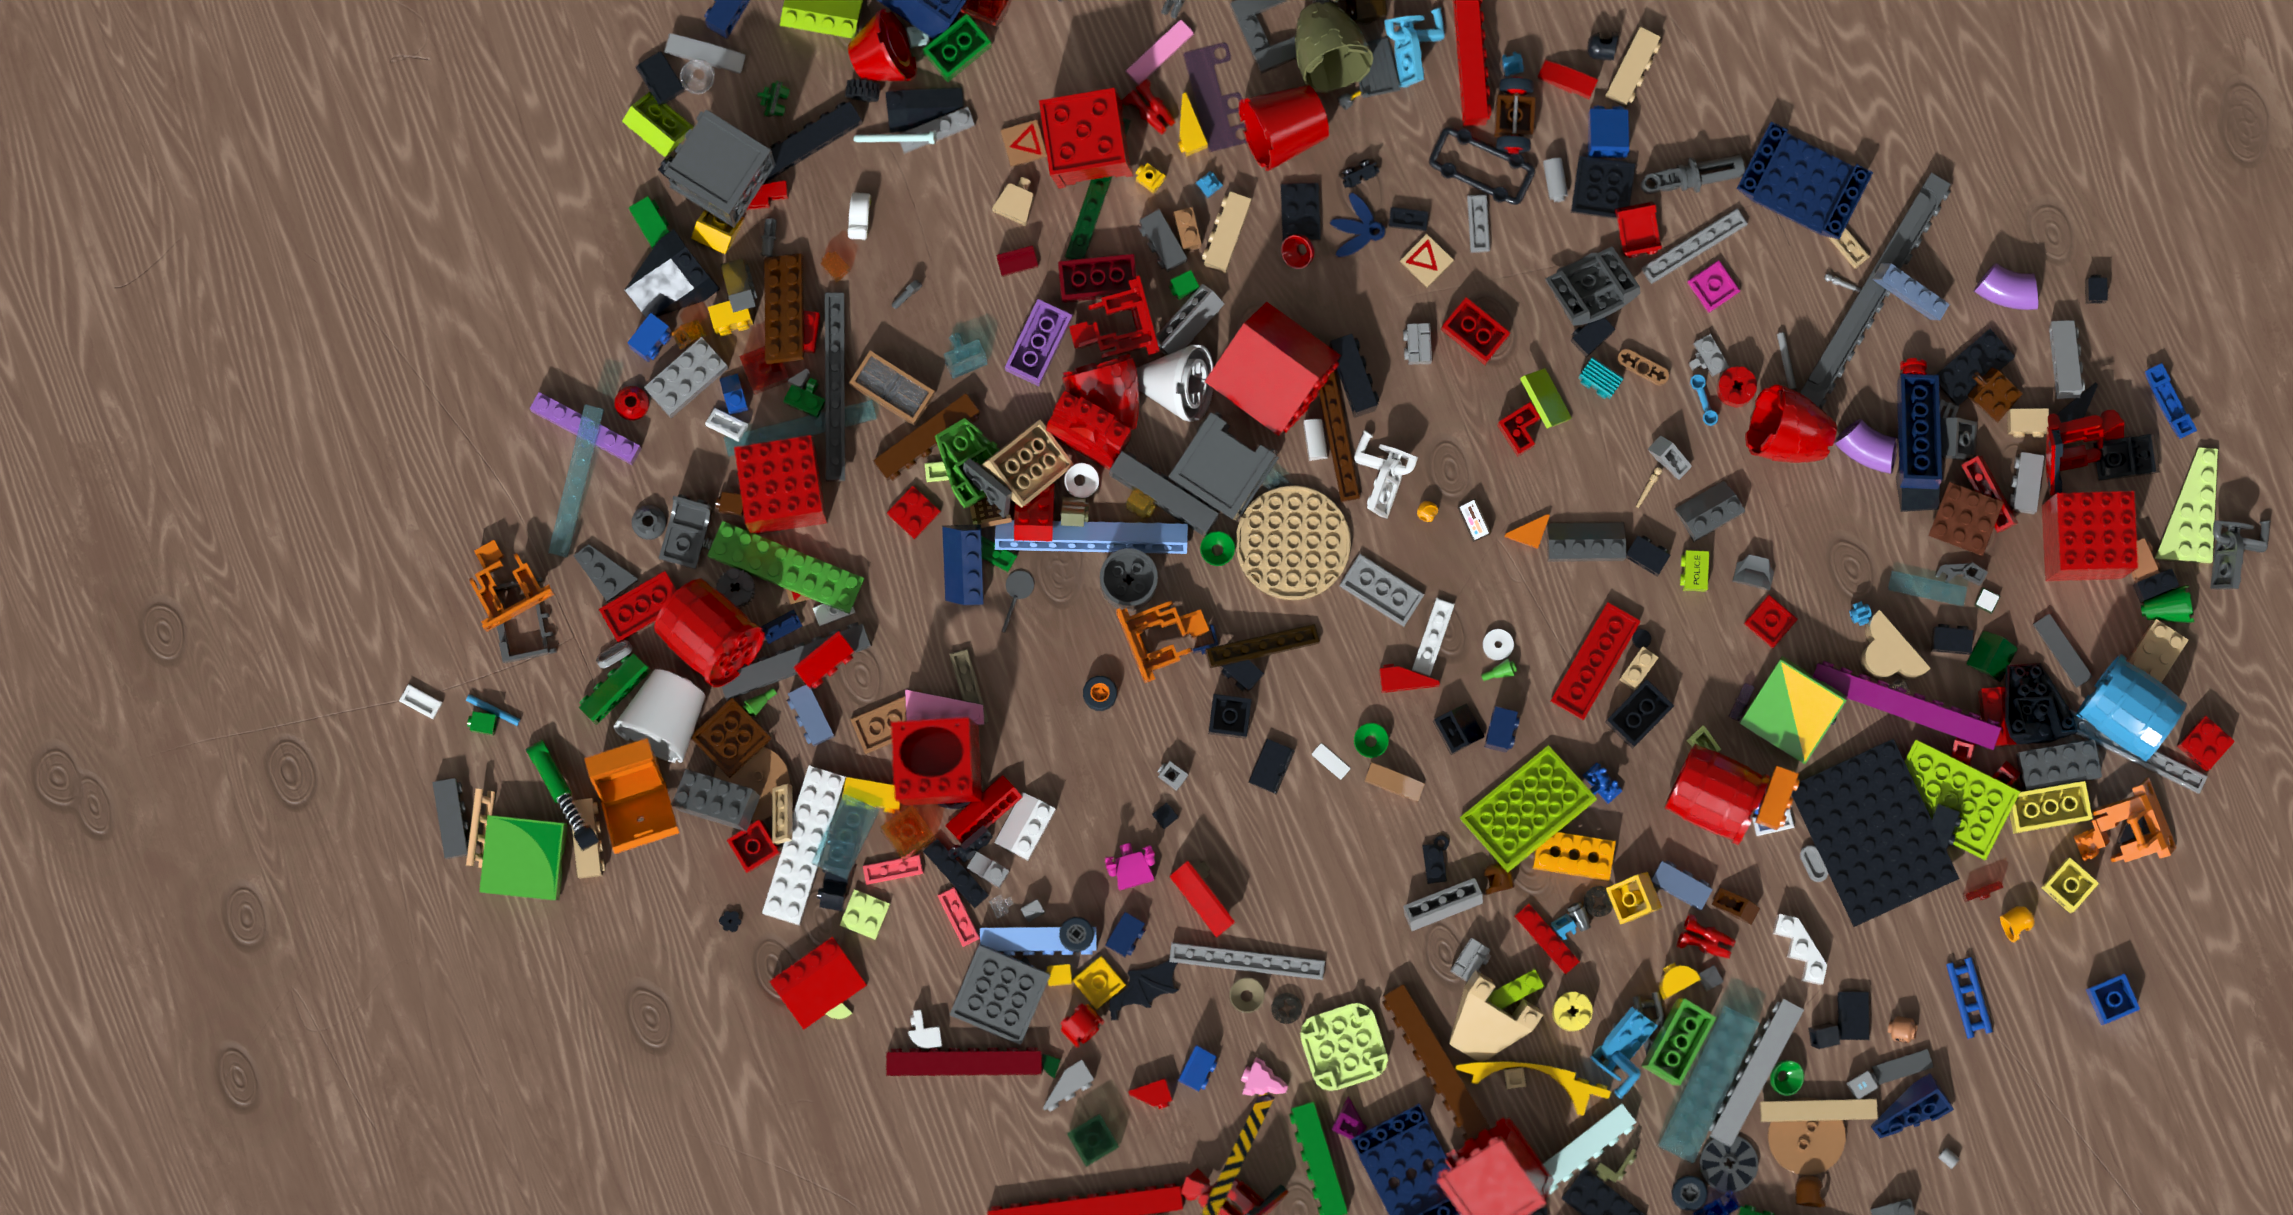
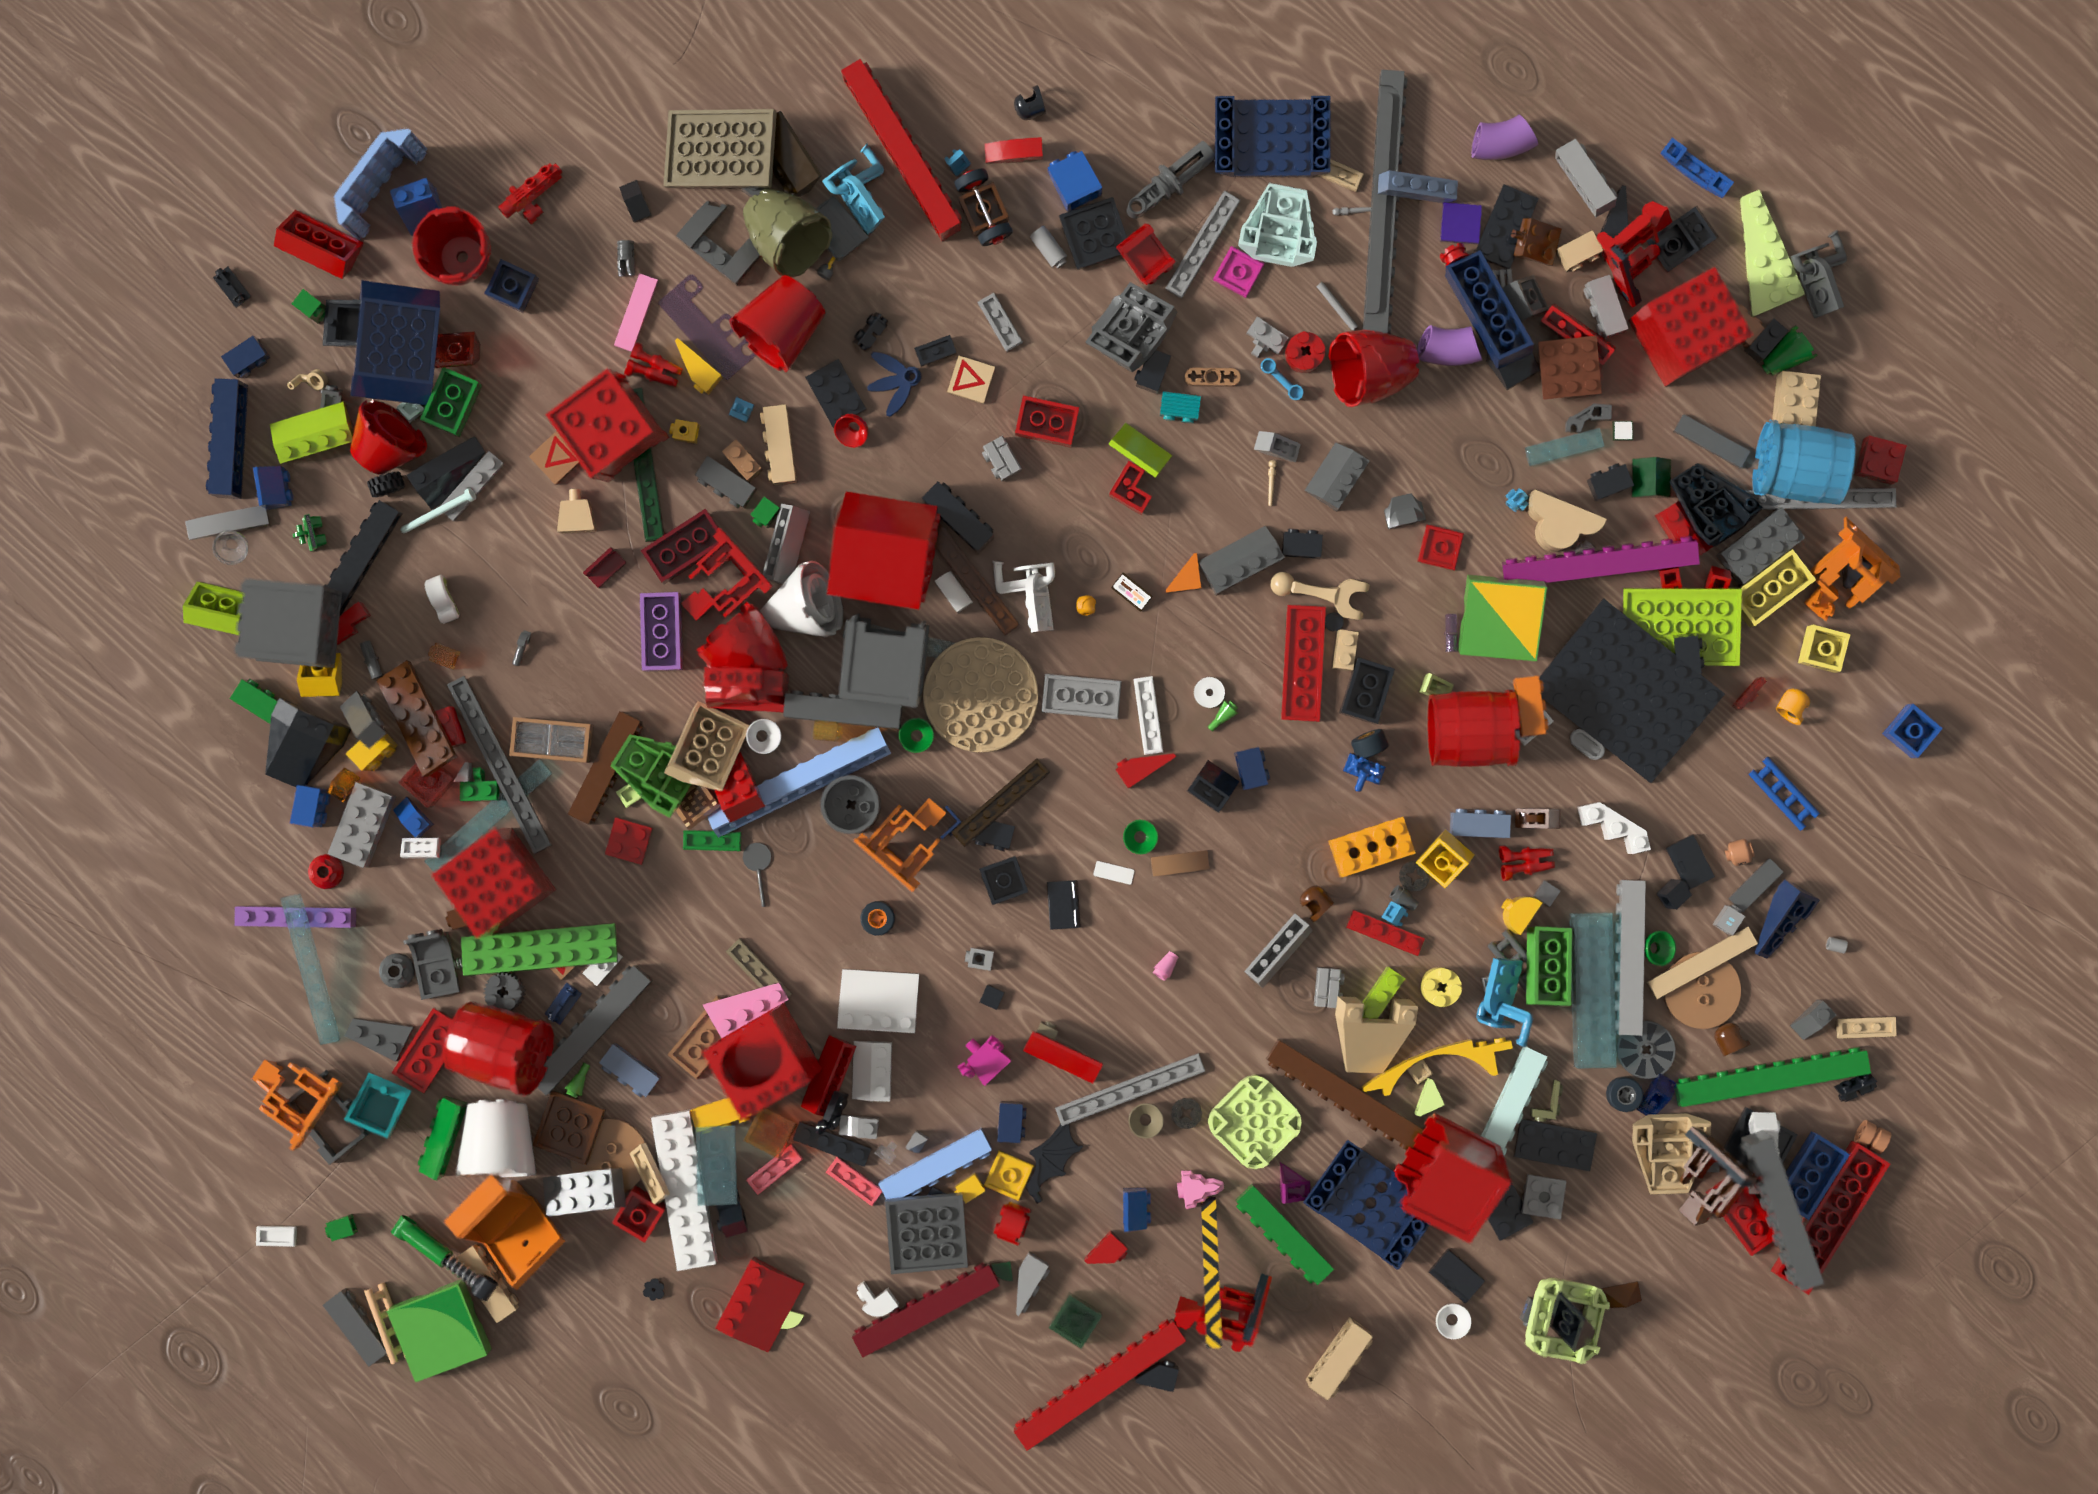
camera: 30 degrees left, 5 degrees up
(493, 710) = (345, 1210): dark azure bar -> none
(575, 630) = (378, 1105): none -> teal piece
(614, 654) = (426, 1105): light grey tile -> none
(660, 78) = (198, 566): black piece -> none
(762, 43) = (273, 487): none -> blue slope
(824, 661) = (616, 1018): red slope -> none
(864, 914) = (770, 1222): yellowish green plate -> none
(963, 564) = (696, 866): dark blue slope -> none
(964, 357) = (601, 678): clear light blue brick -> none
(994, 490) = (678, 783): dark grey wing -> none
(1062, 767) = (878, 1001): none -> white slope
(1074, 511) = (771, 768): olive brick -> none
(1076, 934) = (967, 1147): black wheel -> none
(1335, 867) = (1165, 967): none -> bright pink cone
(1435, 861) = (1250, 914): black hinge -> none
(1498, 194) = (948, 251): black bar -> none
(1511, 1107) = (1429, 1098): none -> yellowish green slope
(1528, 808) = (1311, 827): lime plate -> none
(1614, 582) = (1284, 584): none -> tan piece
(1618, 762) = (1370, 743): none -> black wheel
(1632, 67) = (1066, 110): tan brick -> none
(1695, 570) = (1351, 537): lime brick -> none
(1770, 266) = (1280, 228): none -> light aqua wedge
(1934, 343) = (1460, 223): none -> dark purple tile
(2096, 290) = (1580, 101): black brick -> none

